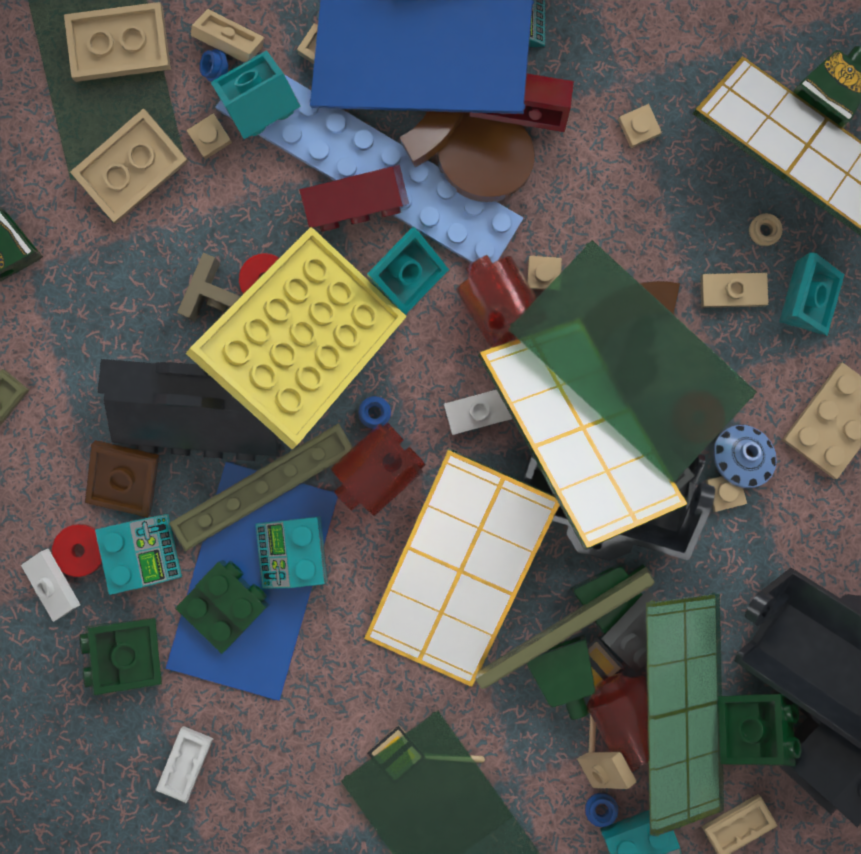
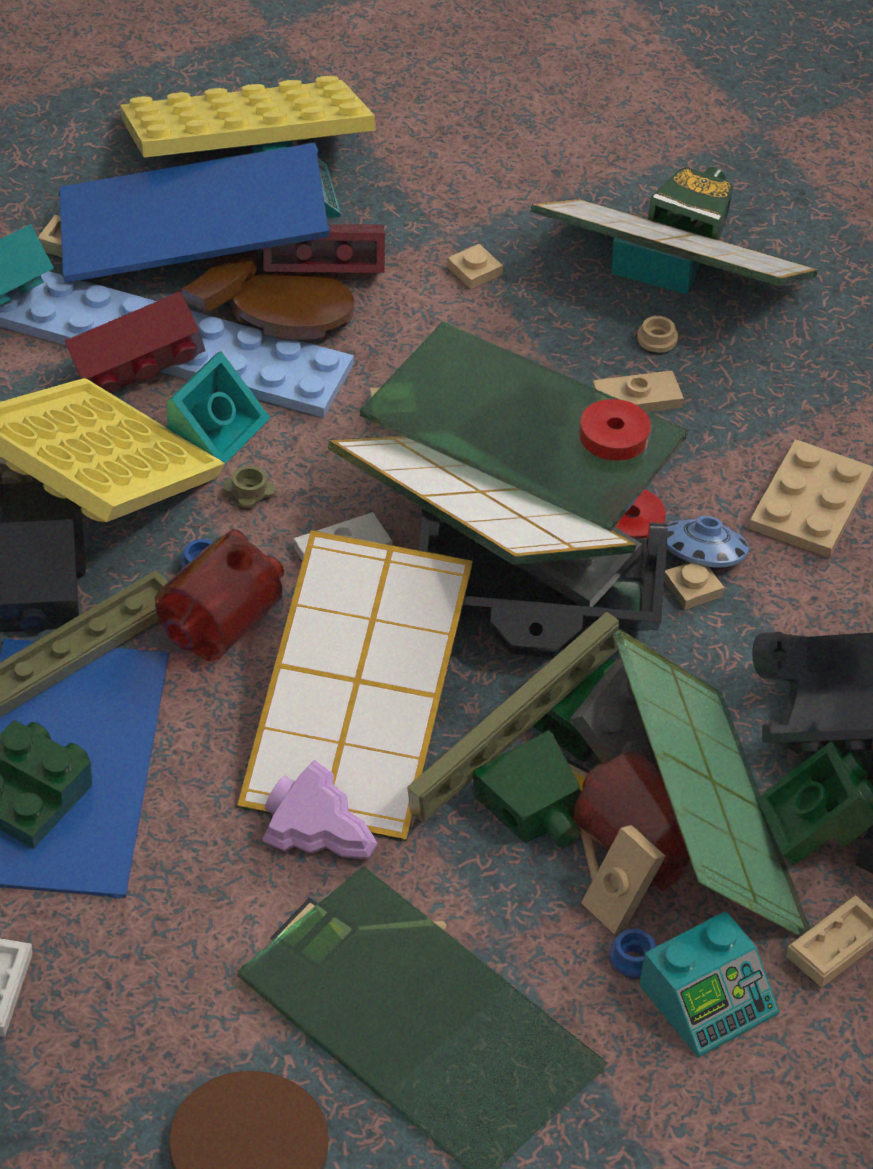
camera: 15 degrees left, 40 degrees down
(291, 553) = (117, 705): teal slope -> none
(413, 668) = (316, 817): none -> lavender rock
(422, 334) = (249, 486): none -> olive plate
(495, 297) = (328, 407): clear red cylinder -> none
(715, 389) = (614, 429): none -> red piece
(812, 294) = (734, 380): teal slope -> none

